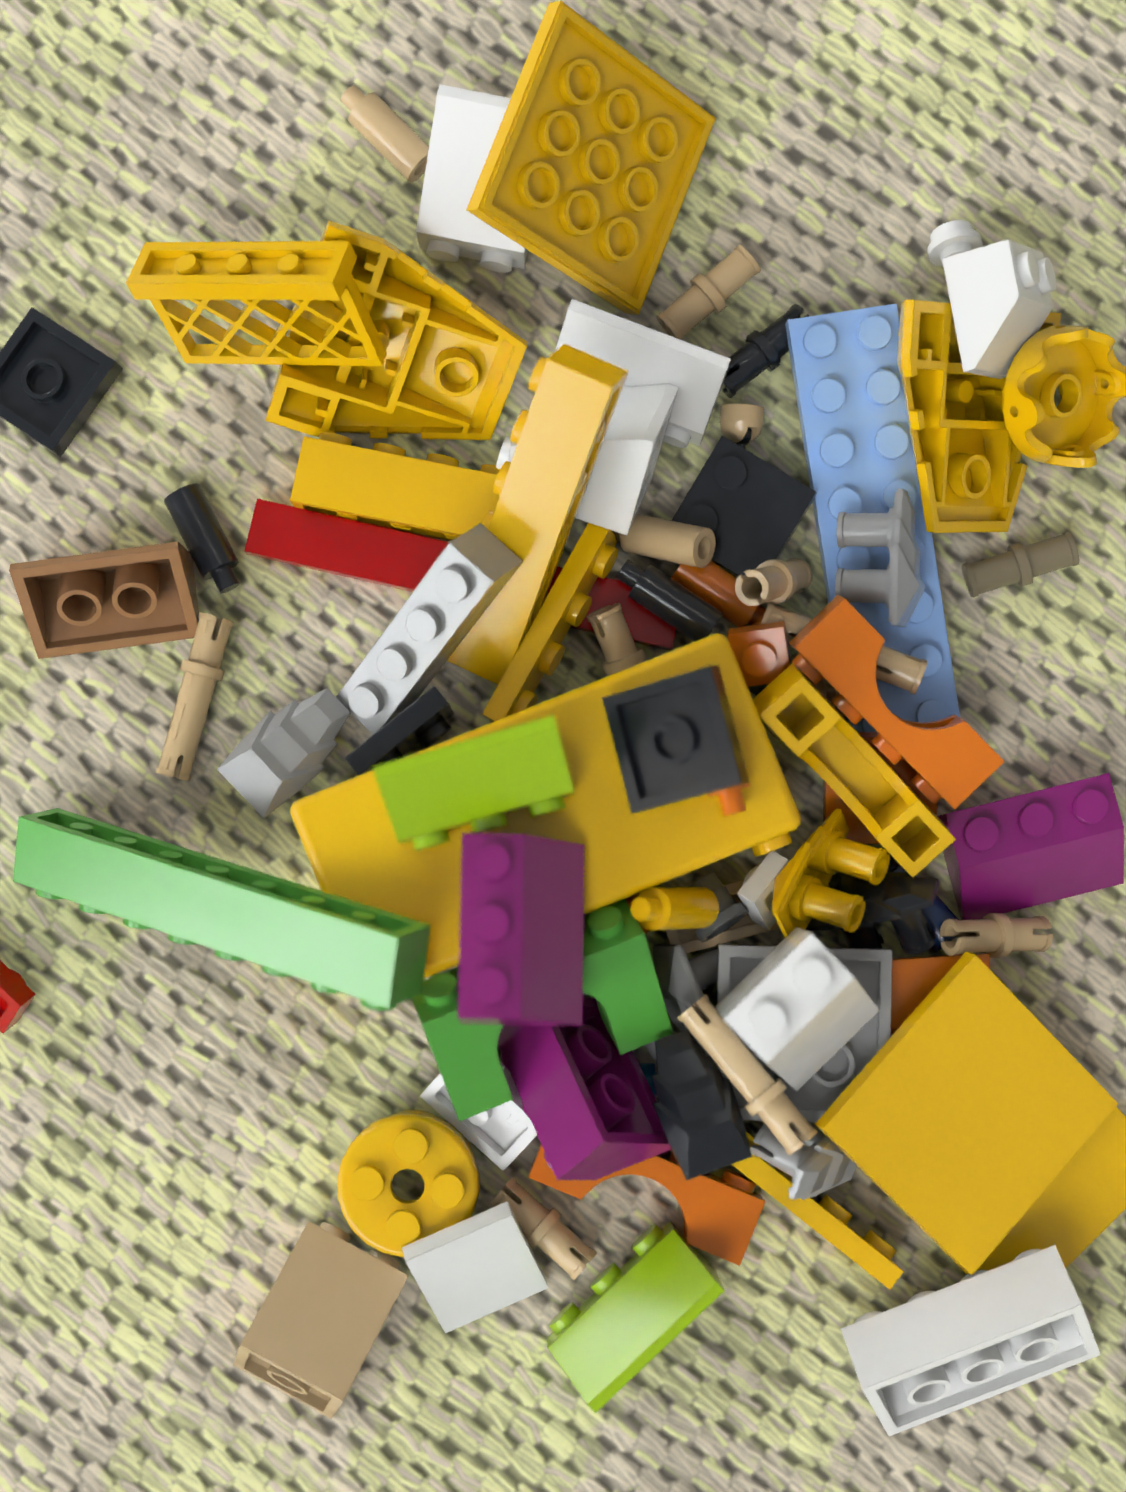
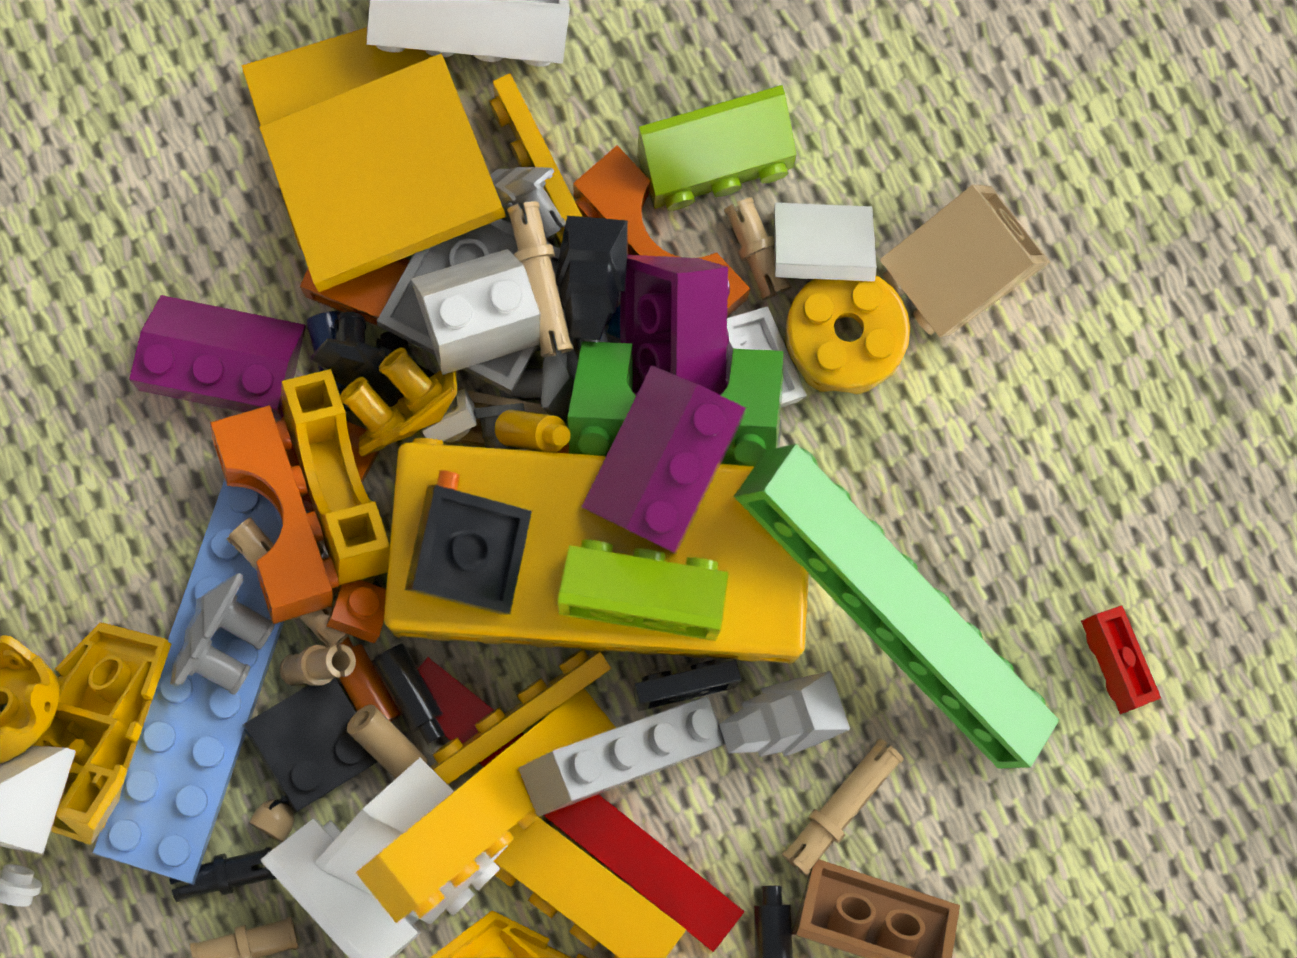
camera: 160 degrees left, 5 degrees down
(615, 639) = (472, 667): tan pin -> none
(996, 935) = (285, 299): tan pin -> none
(1020, 564) = (105, 587): dark tan pin -> none

